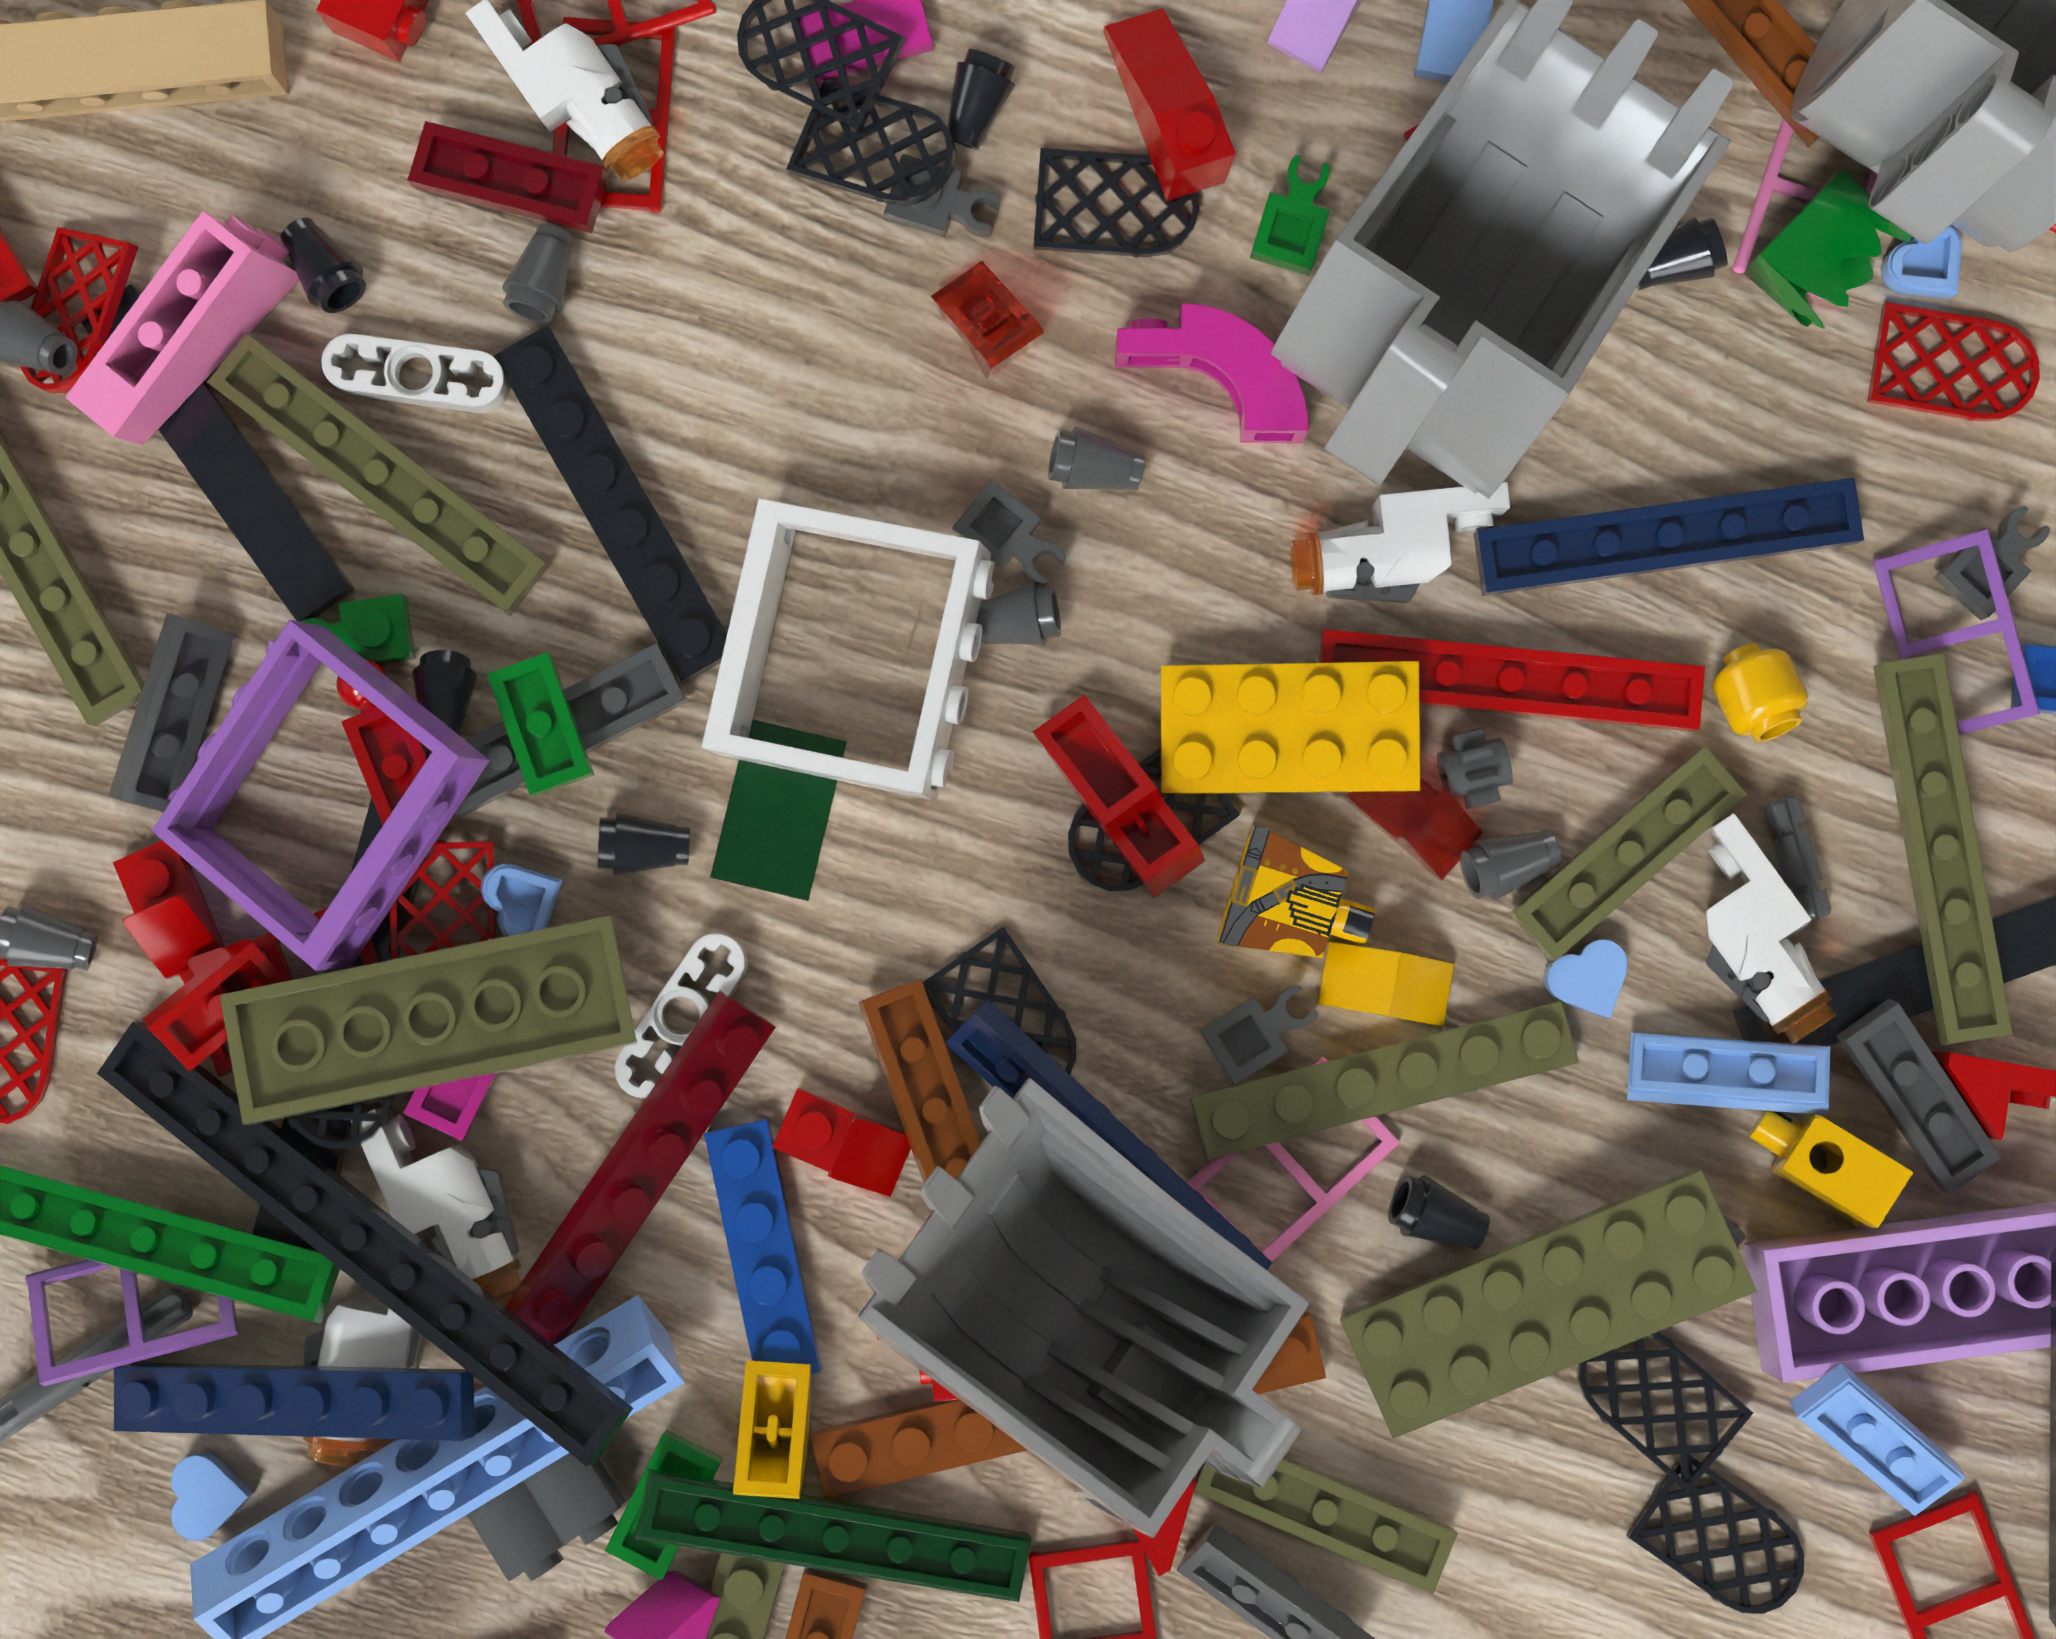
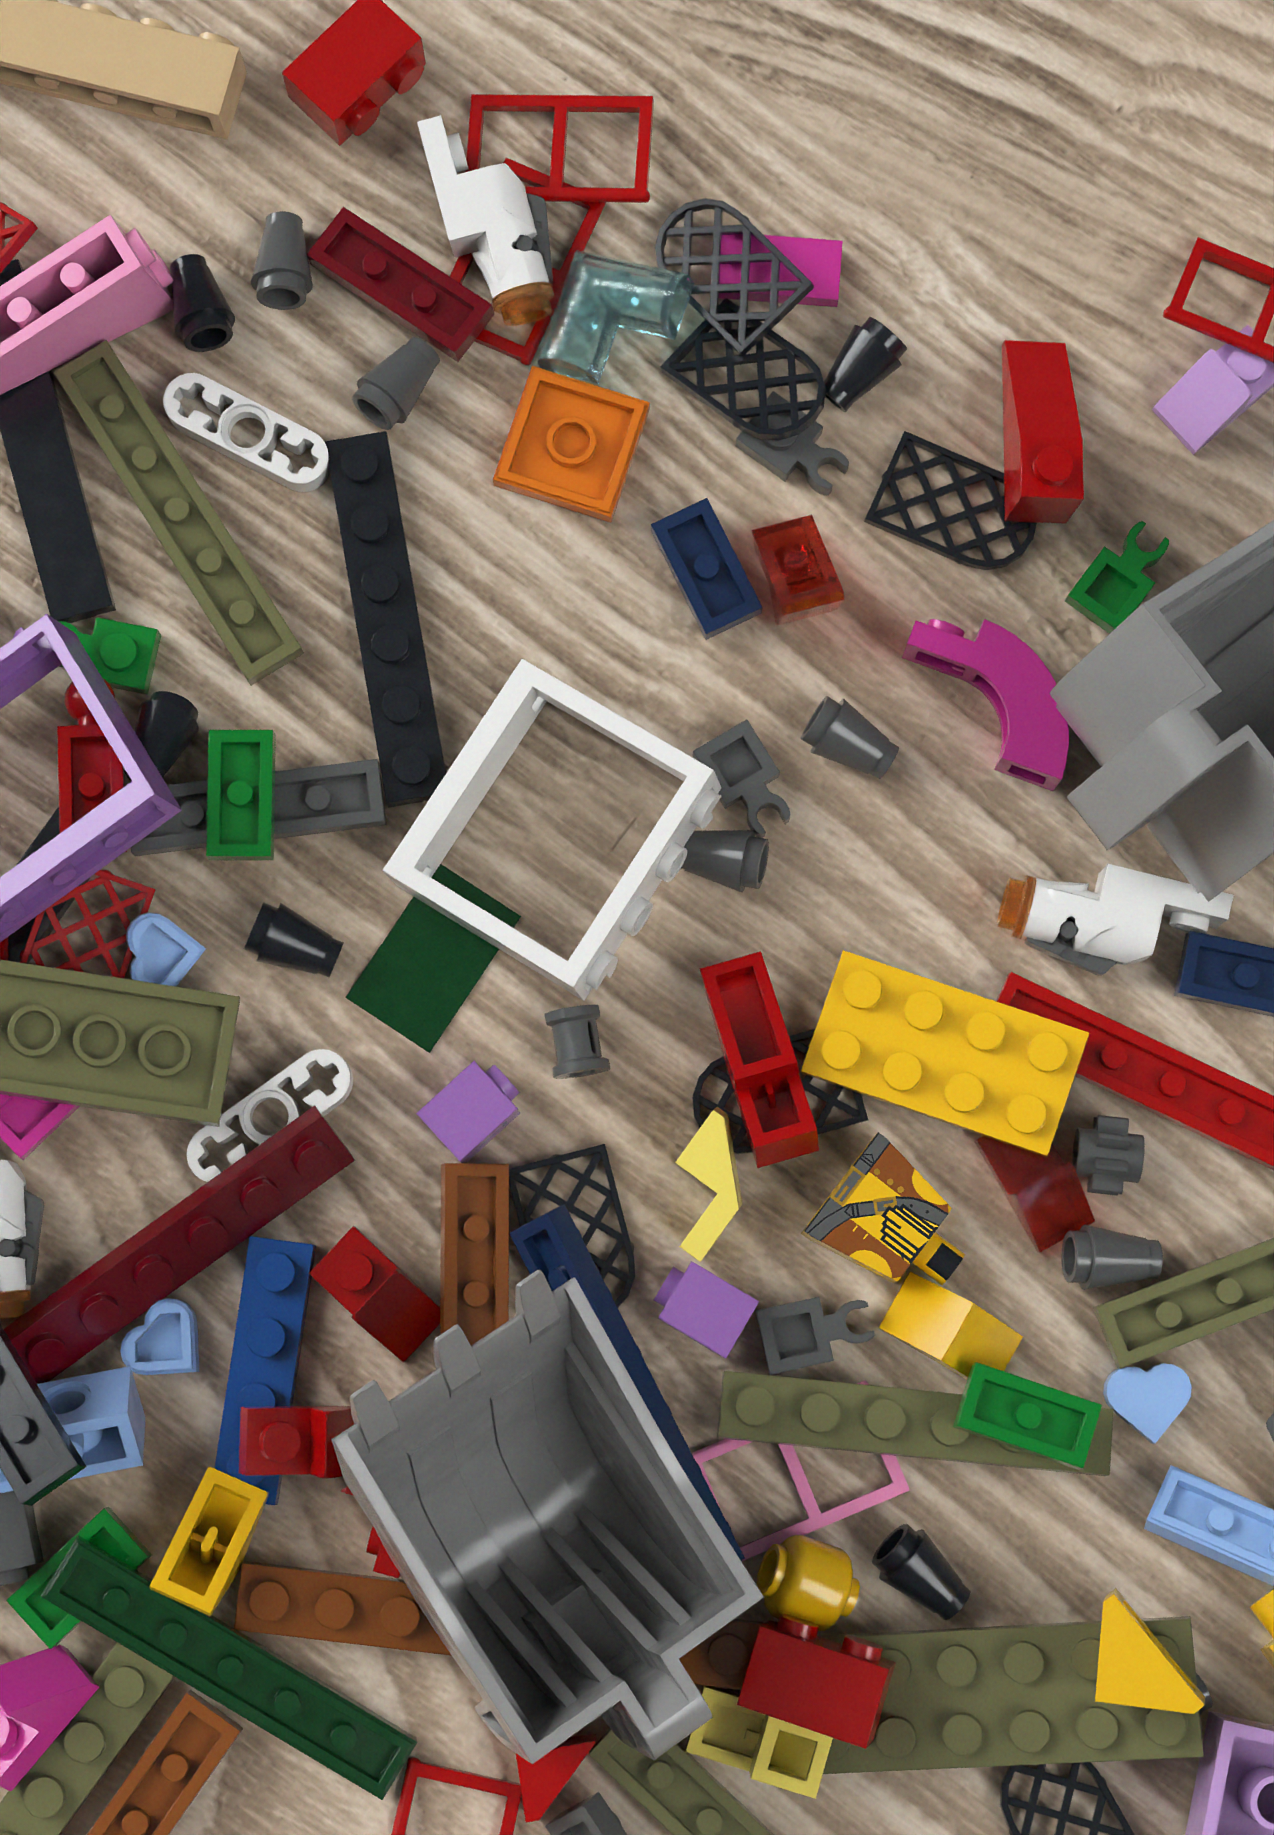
camera: 20 degrees right, 5 degrees down
(387, 197) = (282, 263): none -> dark grey cone
(661, 1259) = (165, 1341): none -> light blue tile
(706, 121) = (607, 295): none -> clear light blue brick
(728, 273) = (571, 444): none -> orange tile
(817, 1305) = (291, 1440): none -> red slope
(867, 942) = (471, 1110): none -> medium lavender brick
(901, 348) = (706, 568): none -> dark blue plate
(942, 841) = (576, 1042): none -> dark grey bush
(1110, 909) = (712, 1162): none -> light yellow slope
(1152, 1046) = (705, 1308): none -> medium lavender brick
(1337, 1262) = (808, 1581): none -> yellow head
(1350, 1420) = (760, 1744): none -> light yellow slope
(1379, 1351) = (817, 1680): none -> red brick
(1486, 1038) = (1027, 1416): none -> green plate
(1672, 1235) = (1137, 1667): none -> yellow slope

